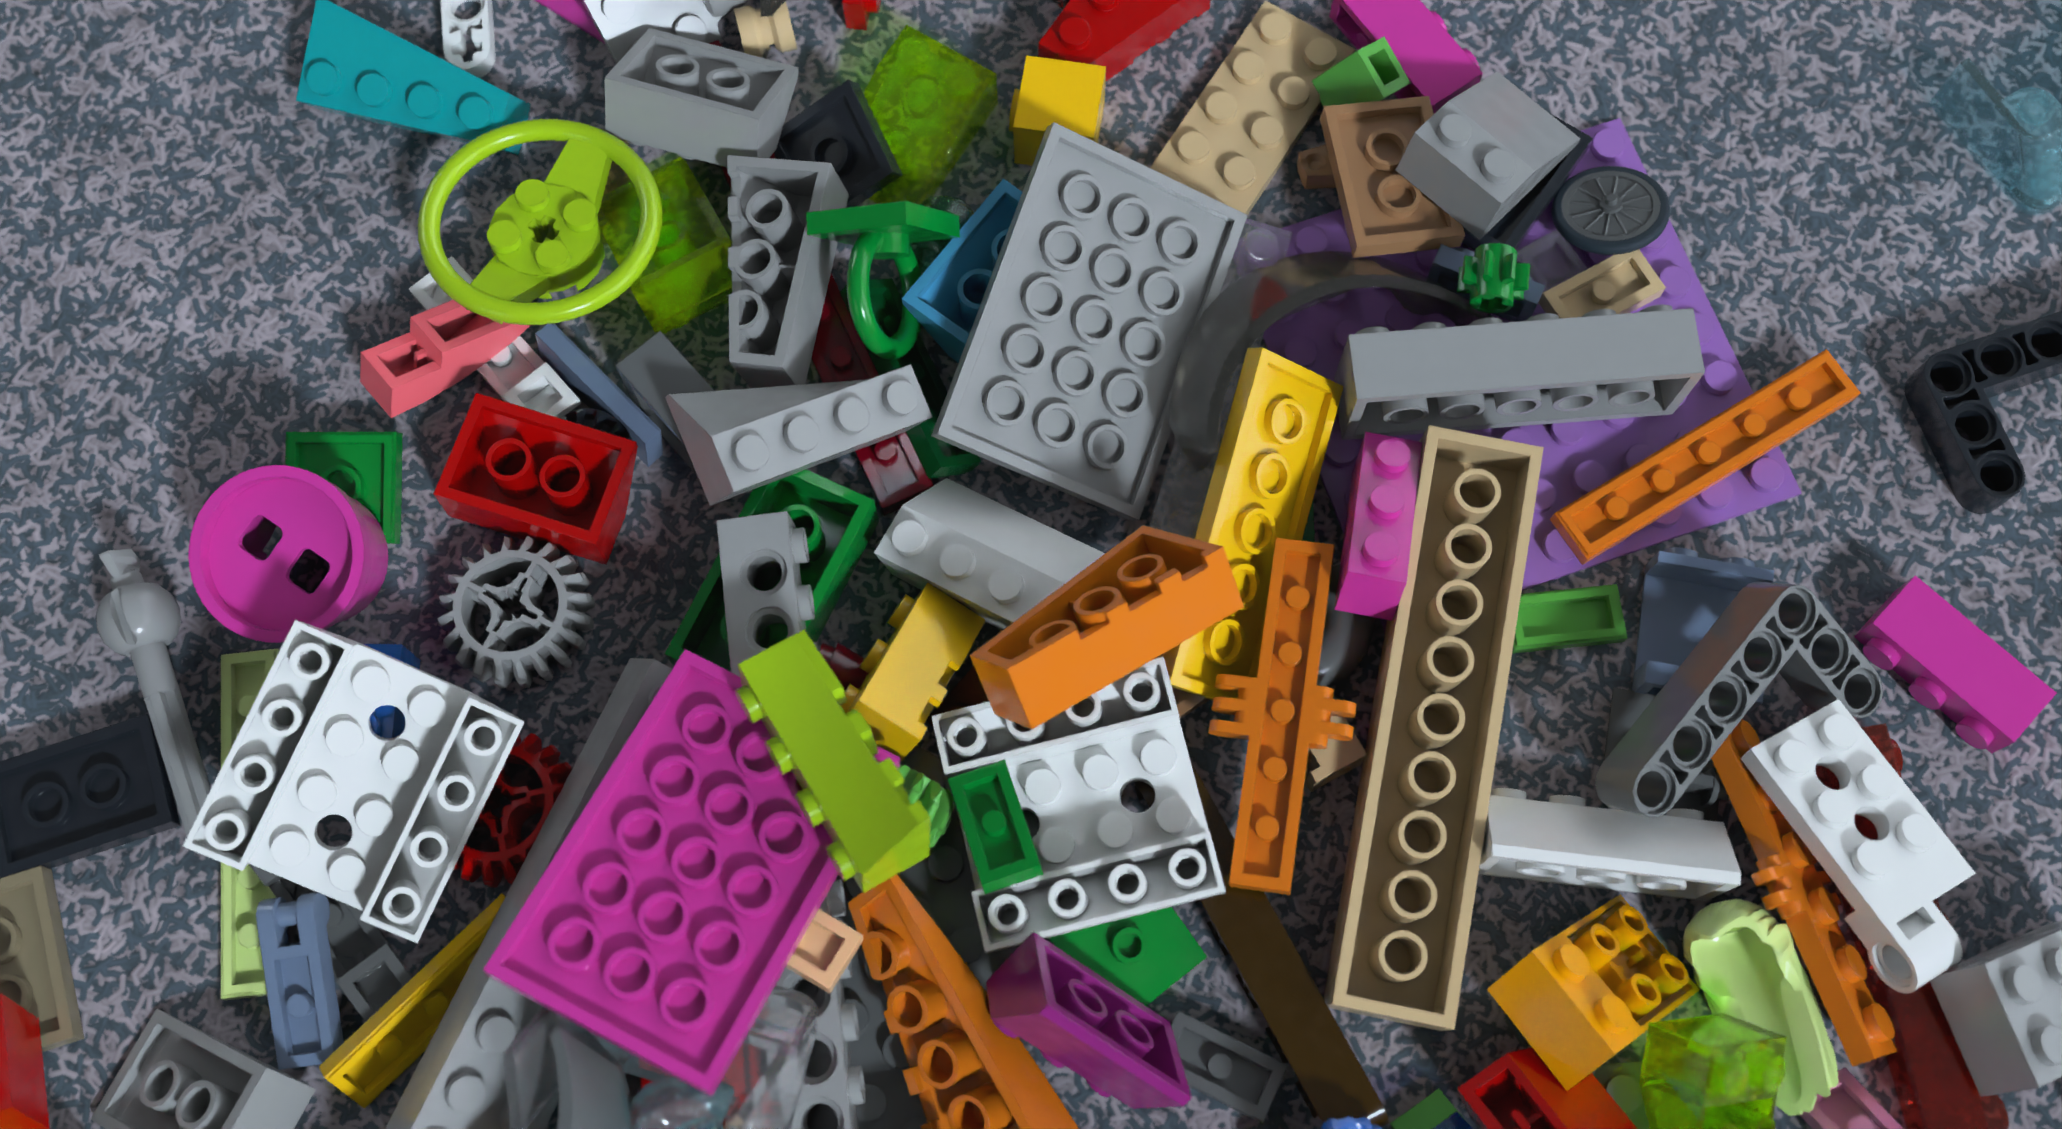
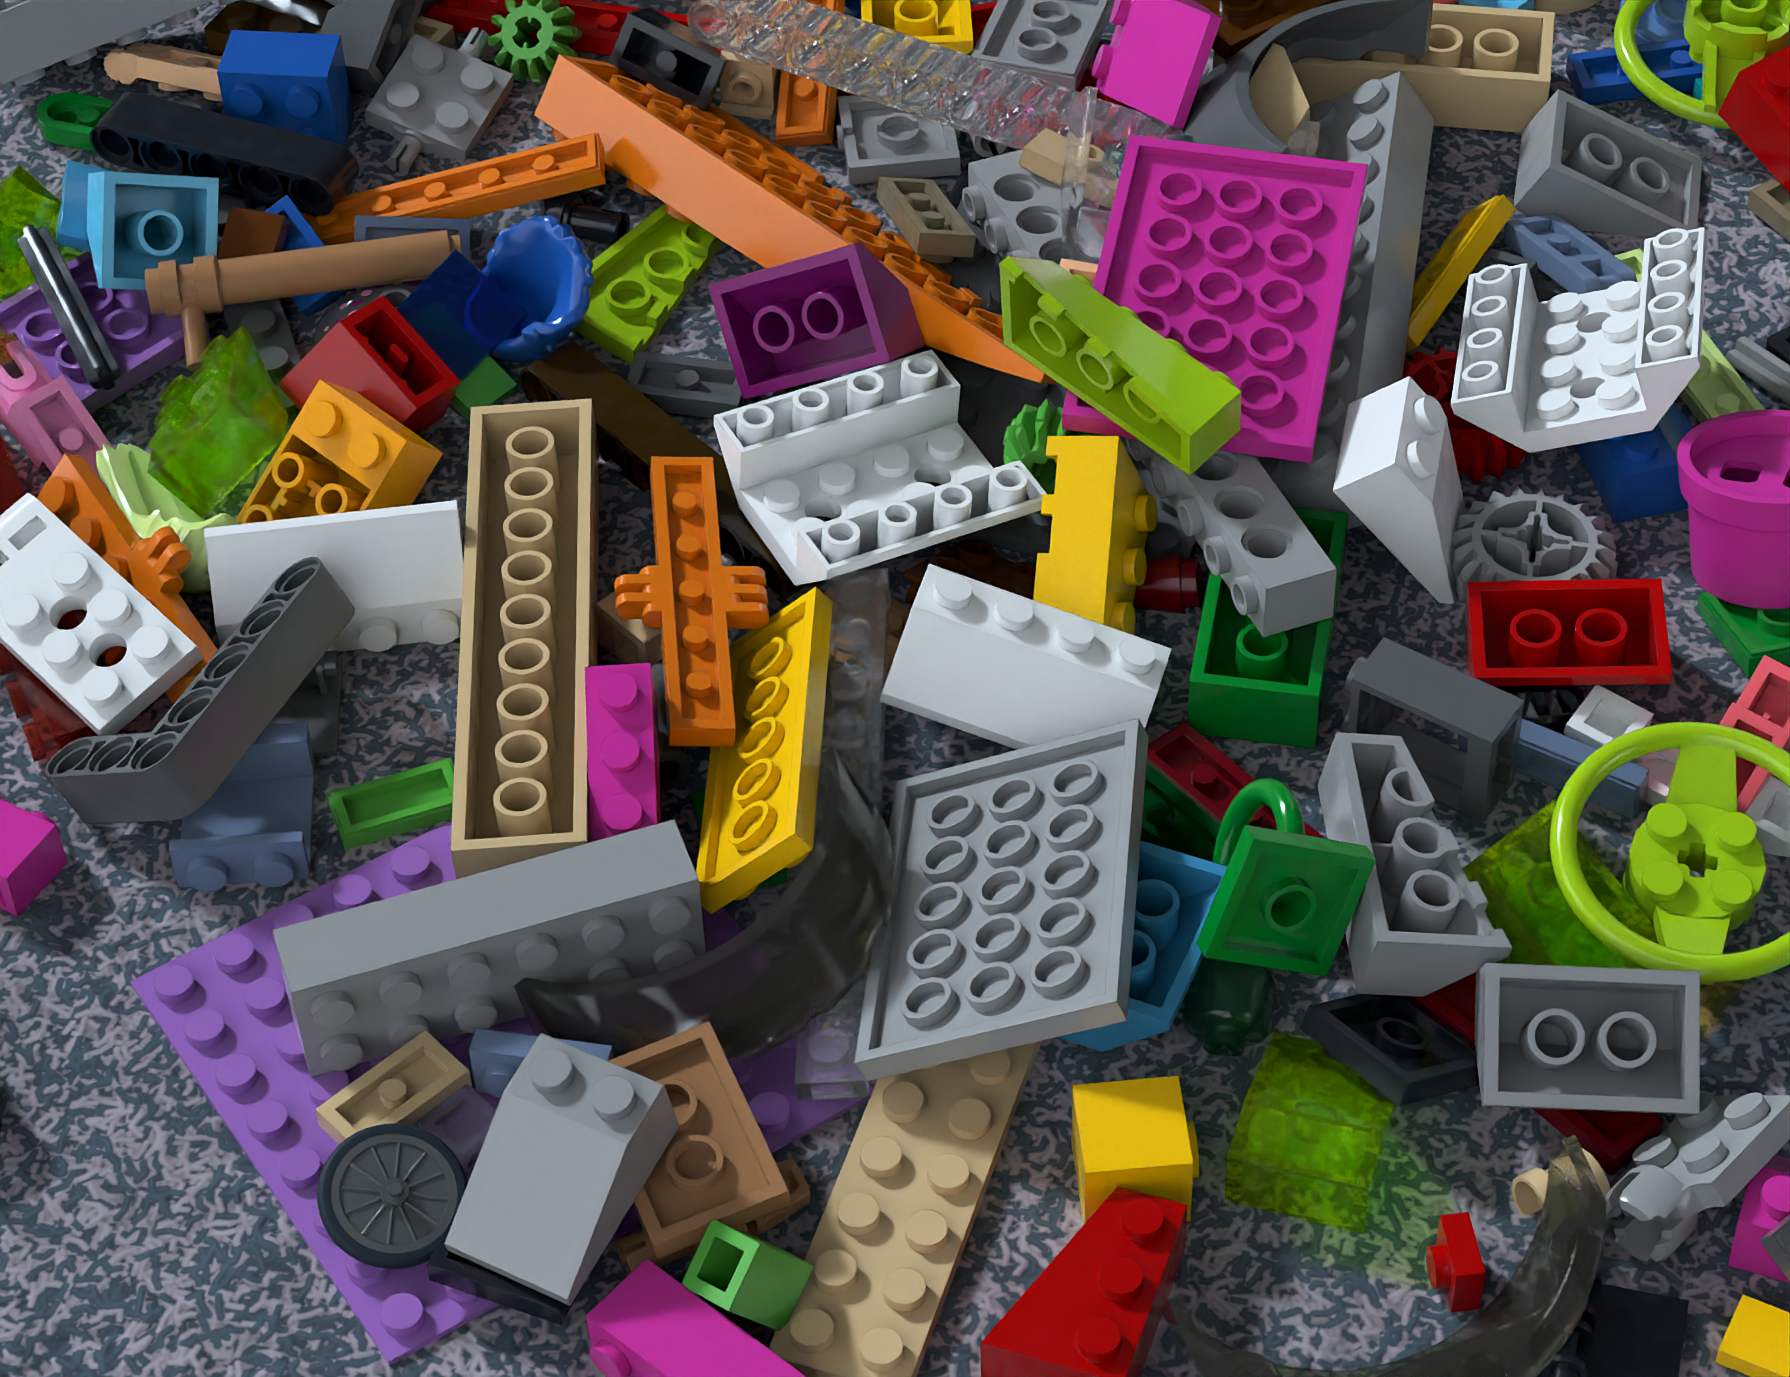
camera: 165 degrees right, 25 degrees down
(607, 654) = (1404, 480): none -> white slope
(773, 432) = (1292, 680): light grey wedge -> none
(995, 827) = (951, 426): green plate -> none
(1106, 623) = (888, 558): orange wedge -> none
(1493, 278) = (535, 1001): green gear -> none
(1704, 456) = (231, 980): orange tile -> none

